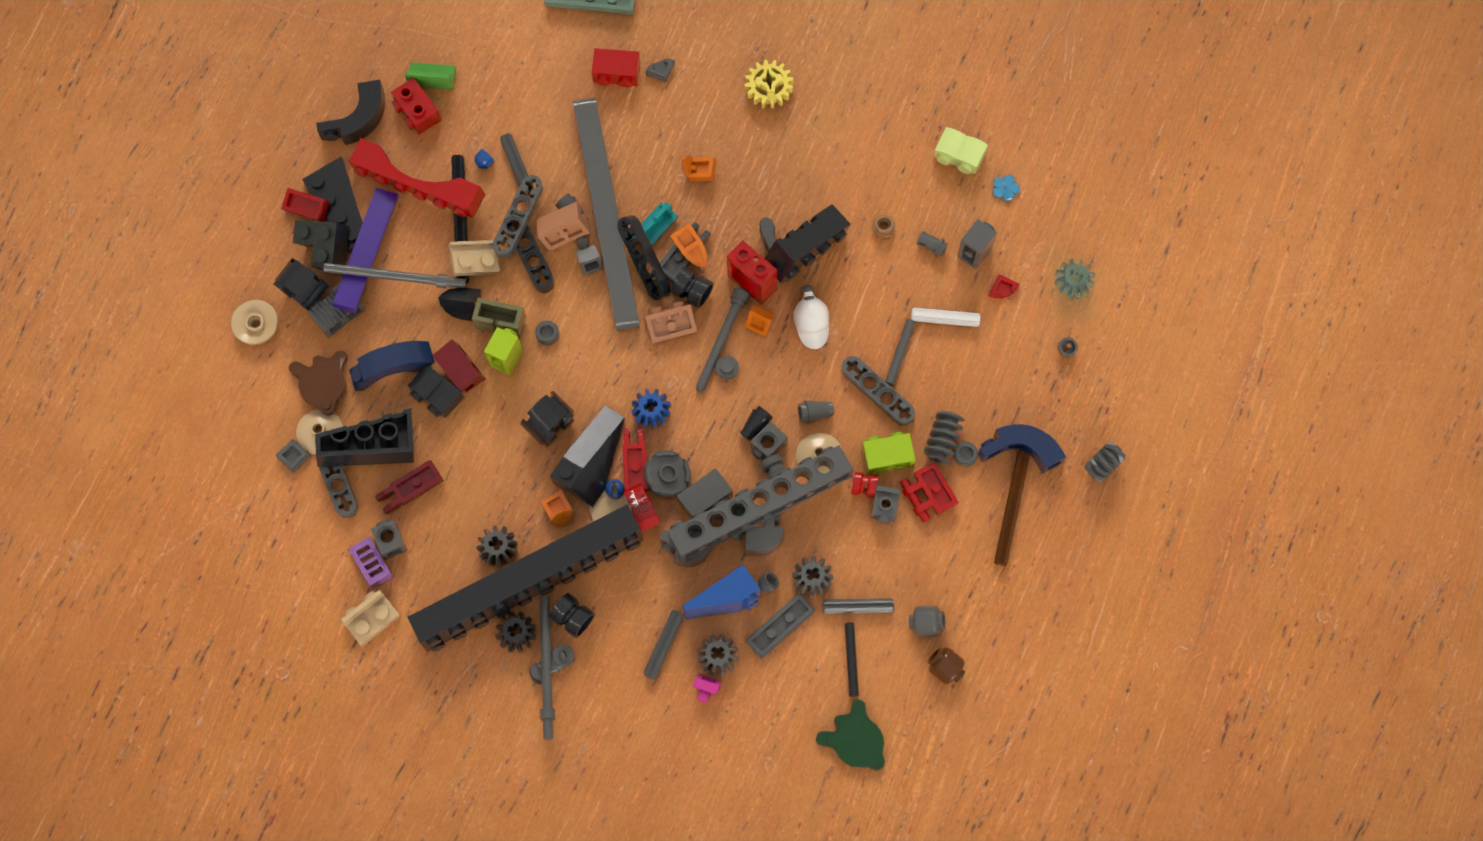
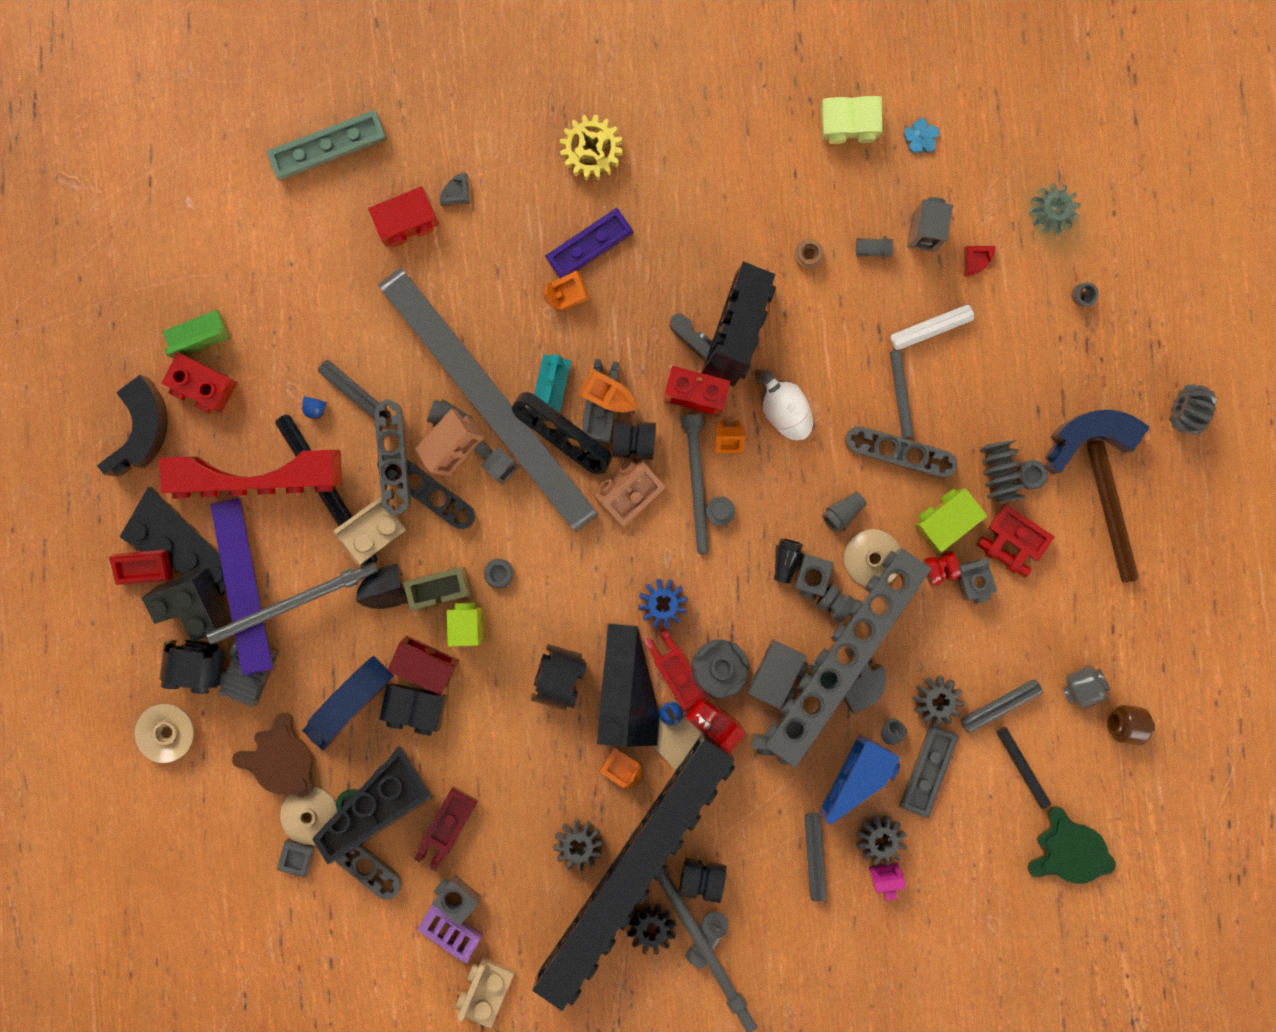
camera: 25 degrees left, 15 degrees up
(734, 146) = (589, 243): none -> dark purple tile

